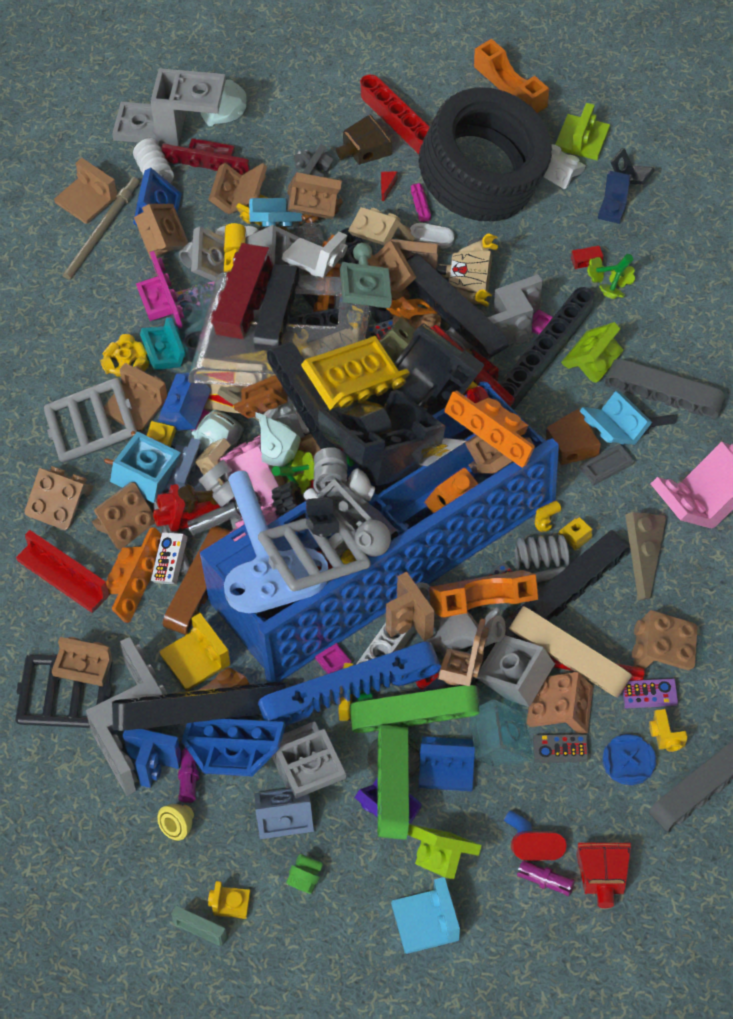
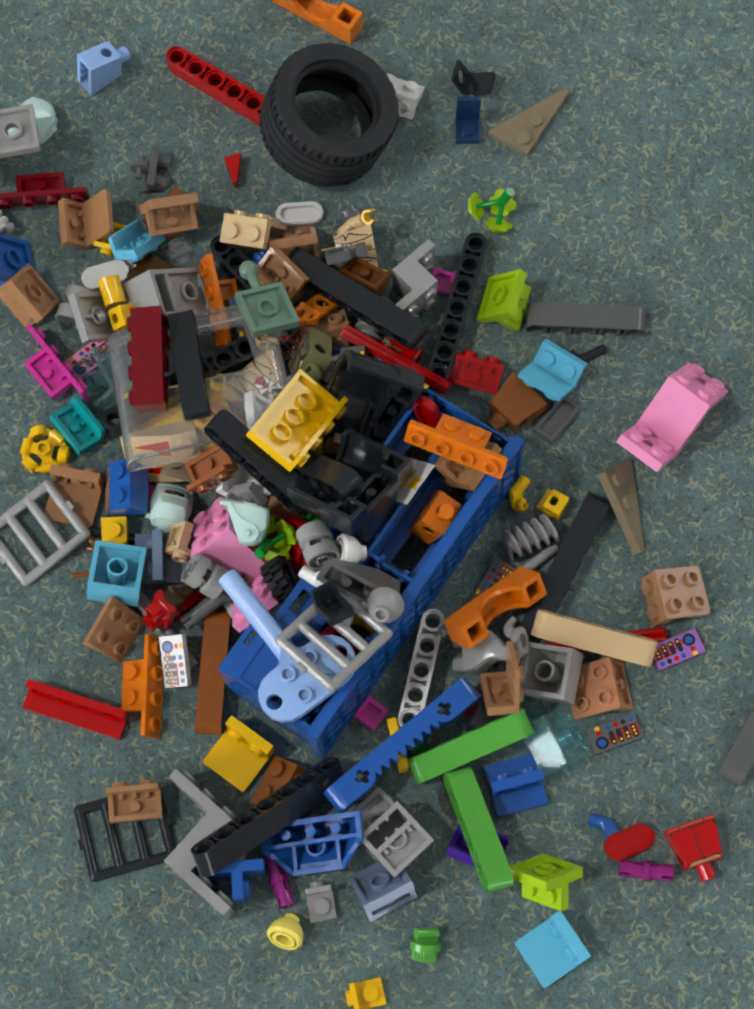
camera: 20 degrees left, 15 degrees up
(56, 497) = (37, 628): medium nougat bracket -> none
(219, 805) = (320, 902): none -> light grey bracket
(300, 74) = (100, 66): none -> light blue torso
(314, 258) = (201, 289): white bracket -> none
(365, 141) = (195, 126): dark brown torso -> none
(409, 610) = (436, 648): medium nougat bracket -> none
(420, 202) = (275, 179): dark pink axle -> none
(451, 269) = (340, 255): none -> dark grey plate
(471, 290) = (366, 275): none -> reddish brown slope
(543, 403) = (477, 372): none -> red bracket
(581, 257) = (459, 194): red piece -> none
(583, 134) = (410, 51): lime bracket -> none
(629, 759) = (680, 723): blue tile -> none
(660, 728) = (700, 685): yellow bracket -> none
(668, 222) = (527, 127): none -> dark tan wing

